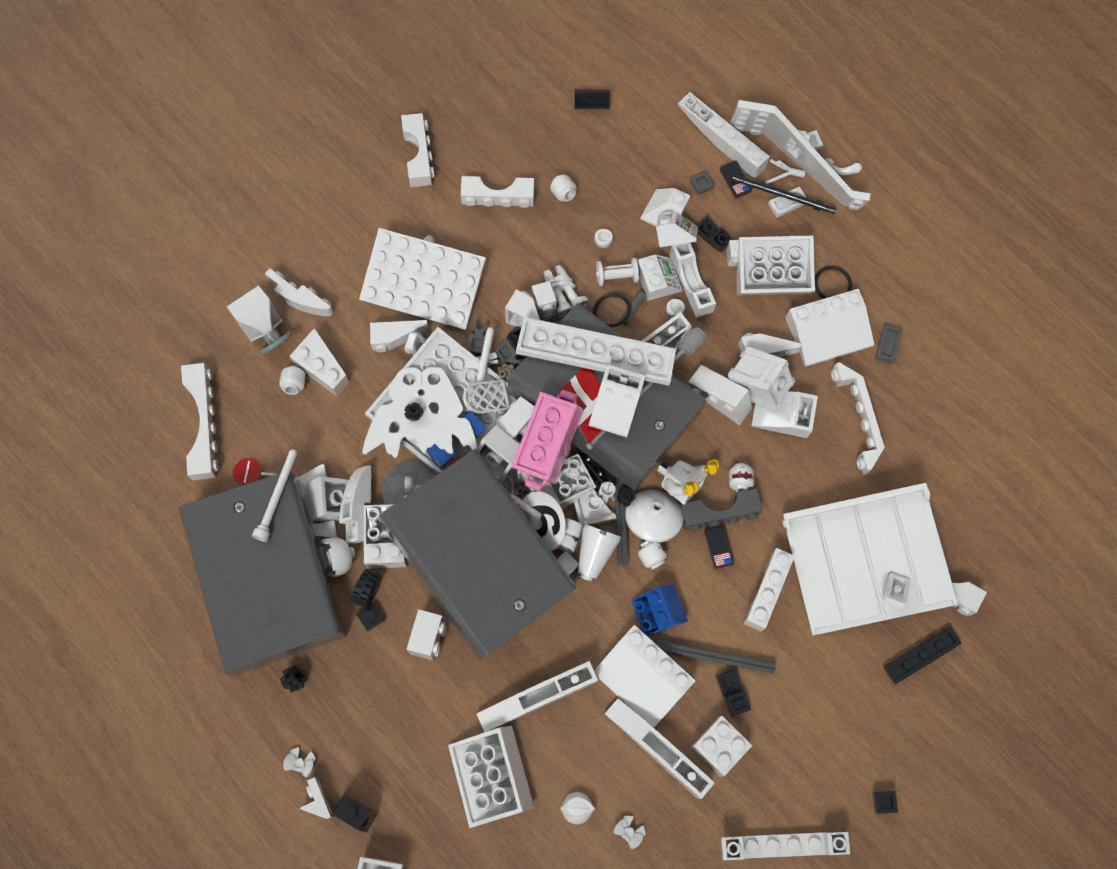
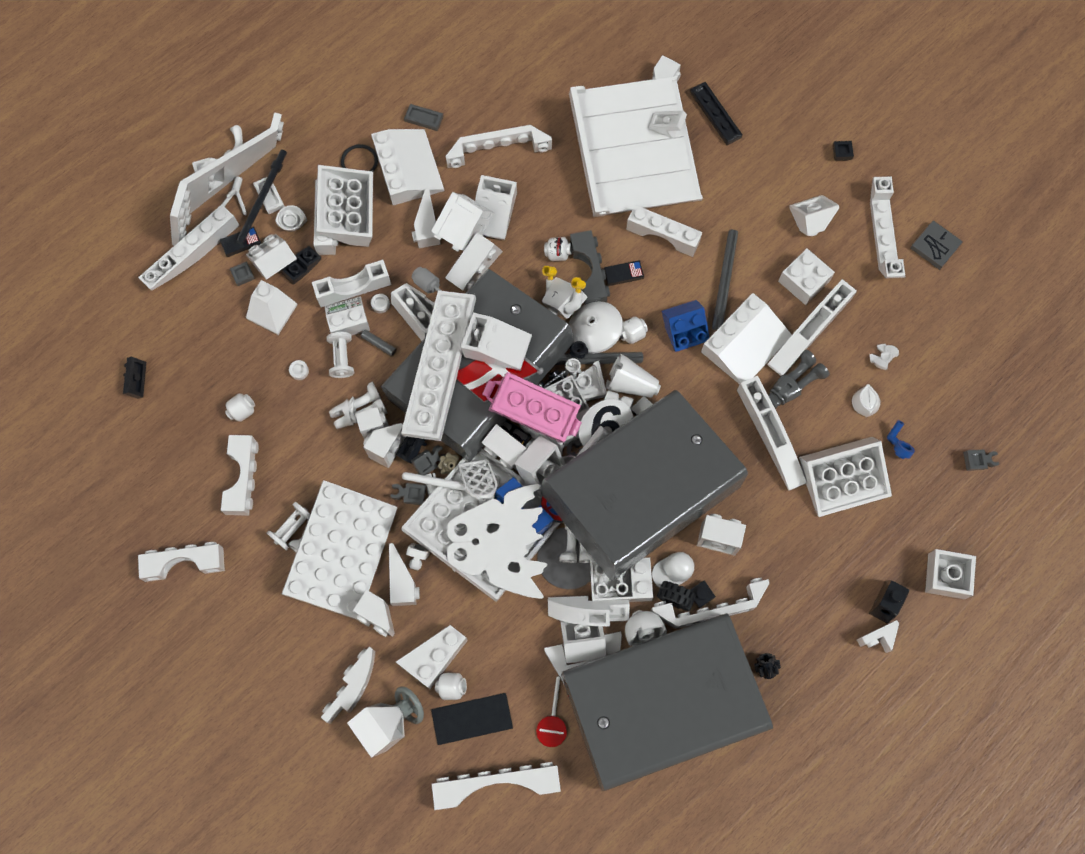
camera: 85 degrees left, 0 degrees up
(262, 531) = (631, 694): white piece -> none
(264, 401) = (471, 719): none -> black sticker
(297, 764) = (849, 651): white piece -> none
(360, 310) = (376, 612): none -> white slope
(370, 671) = (755, 592): none -> white slope
(396, 590) = (674, 568): none -> white cap
(413, 416) = (499, 551): black plate -> none
(436, 228) = (289, 526): none -> white hose
(521, 843) = (902, 449): none -> blue plate
(587, 717) = (786, 387): none -> dark grey piece
(618, 296) = (369, 350): black tyre -> none
(675, 229) = (300, 295): white slope -> none
(720, 205) = (271, 255): none -> white slope
(732, 692) = (756, 267): black slope -> none
(761, 221) = (290, 218): none -> white hat
(800, 761) = (814, 214): none -> white slope

